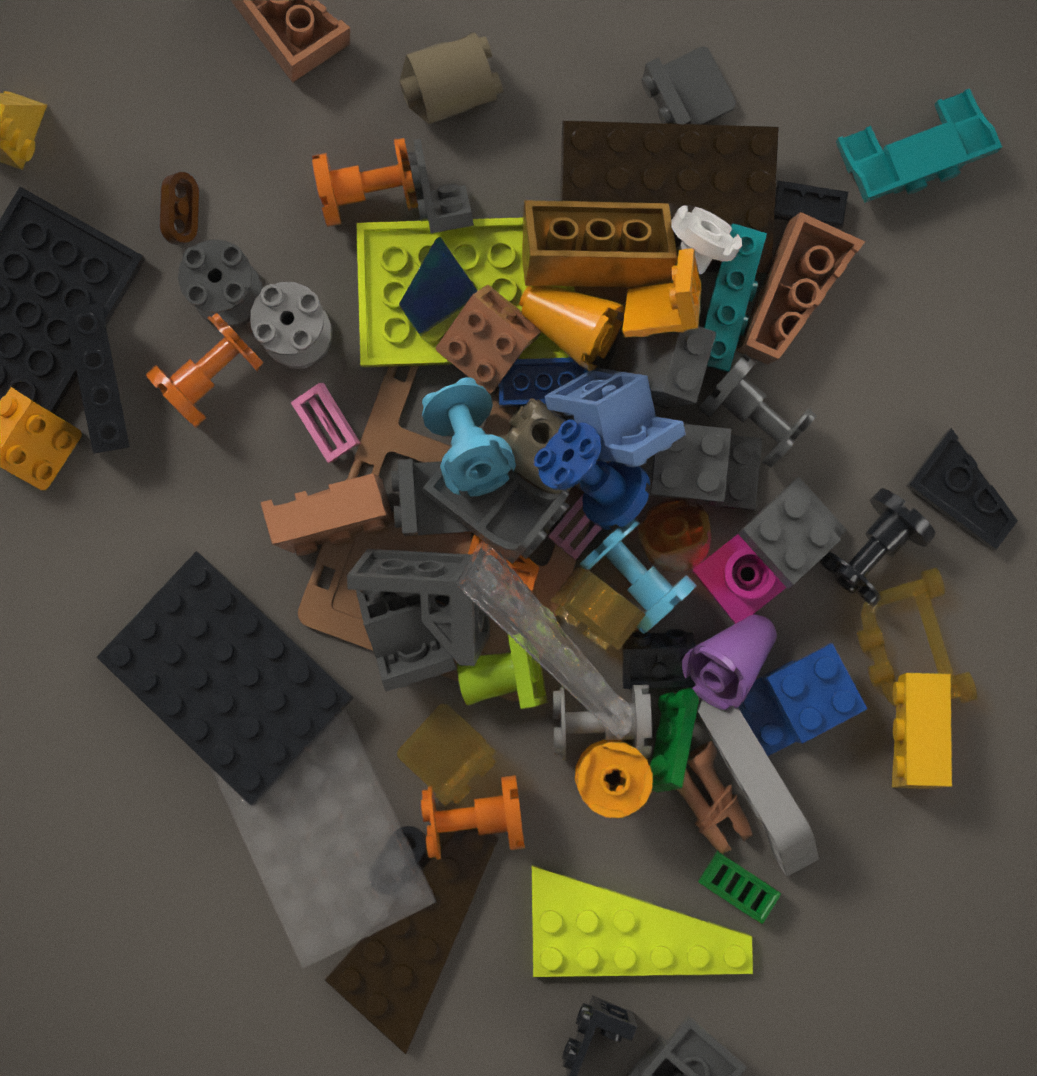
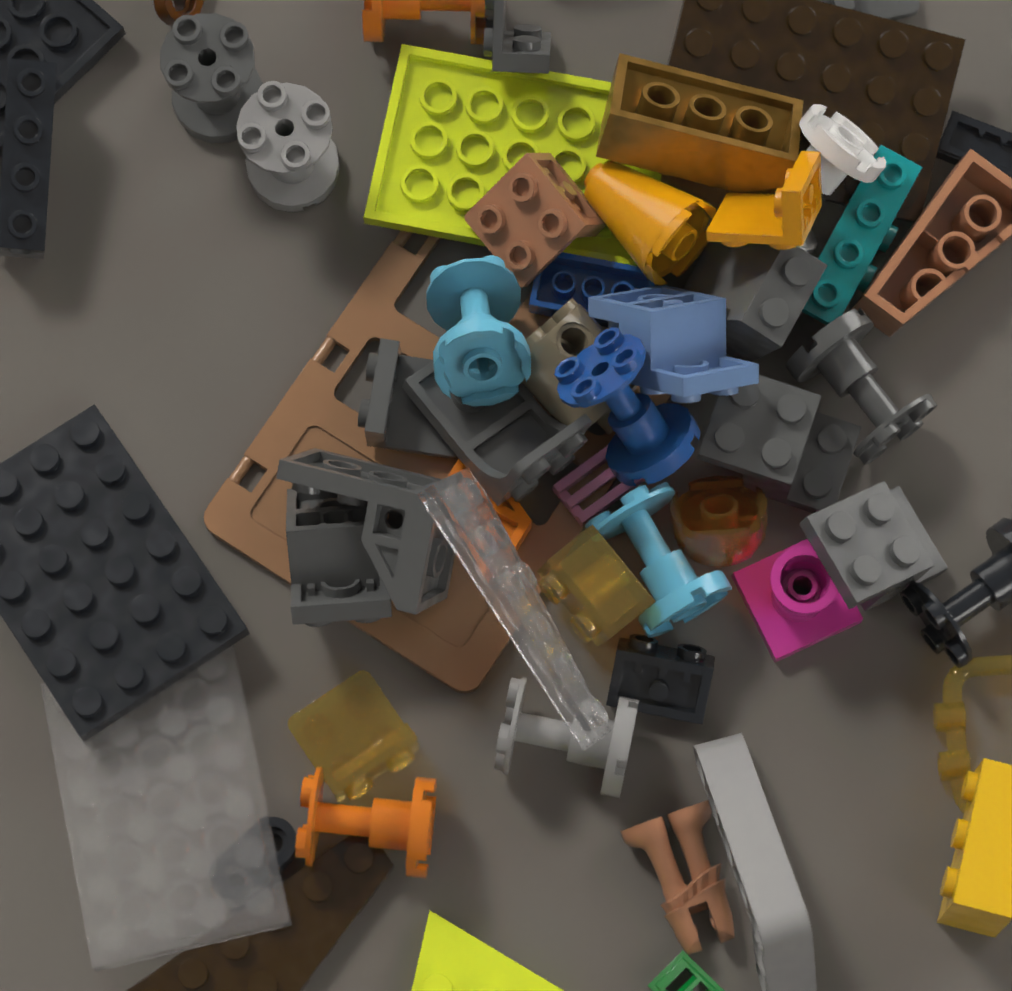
camera: 15 degrees right, 10 degrees down
(194, 379) = (149, 186): orange piece -> none
(328, 515) = (275, 393): nougat wedge -> none
(338, 417) = (315, 318): bright pink tile -> none
(436, 289) = (481, 144): clear blue wing -> none
(504, 674) = (453, 643): lime plant -> none
(624, 794) = (569, 781): light orange piece -> none
(673, 739) = (655, 782): green plate -> none
(730, 661) = (753, 695): medium lavender cone -> none
(801, 700) = (836, 769): blue bracket -> none

